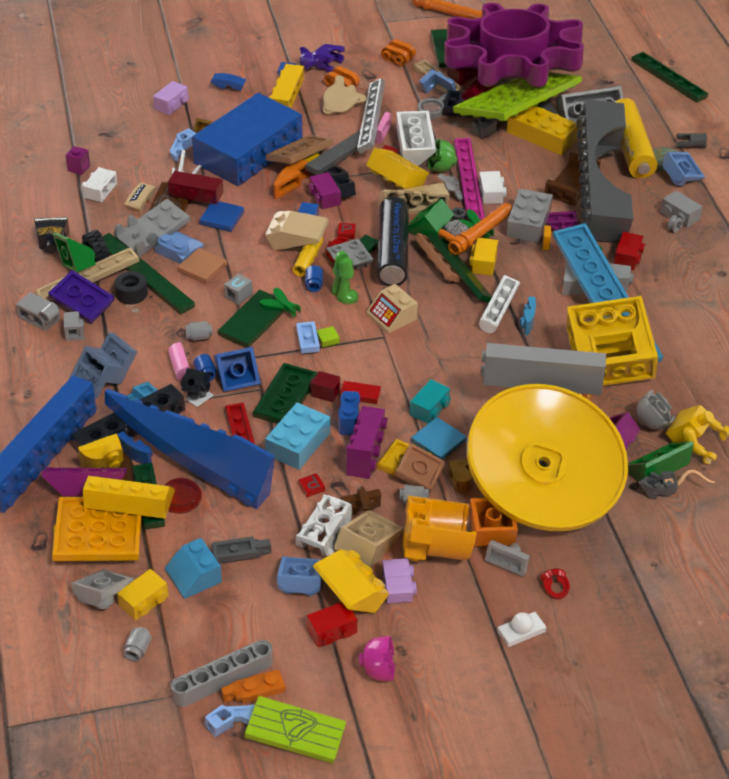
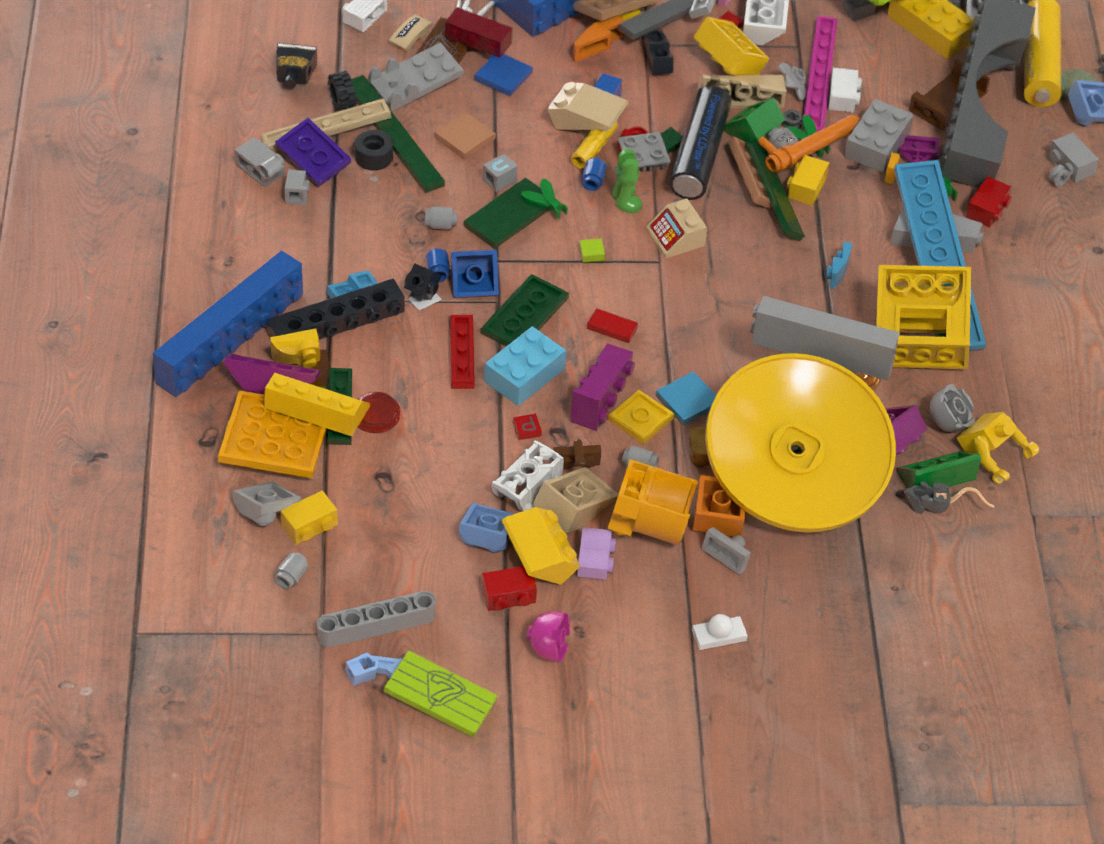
camera: 10 degrees right, 5 degrees up
(74, 254) = (314, 96): green slope -> none
(105, 363) = (322, 241): sand blue bracket -> none
(135, 450) = (335, 350): blue slope -> none
(177, 246) = (440, 105): medium blue slope -> none
(178, 360) = (409, 250): bright pink brick -> none
(194, 569) = (371, 499): dark azure slope -> none
(222, 460) = (429, 381): blue wedge -> none
(240, 549) = (428, 486): dark grey hinge -> none
(251, 687) = (399, 641): orange hinge -> none
(307, 337) = (567, 247): light blue plate -> none
(324, 190) = (636, 61): magenta brick -> none
(325, 386) = (573, 312): dark red brick -> none
(346, 230) = (649, 118): red tile -> none
(348, 412) = (590, 346): blue brick -> none
(419, 467) = (655, 428): nougat tile -> none
(430, 401) = (690, 351): teal brick -> none
(443, 158) = (794, 40): bright green cylinder -> none
(498, 304) = (807, 244): white brick -> none
(546, 578) = (765, 585): red piece -> none

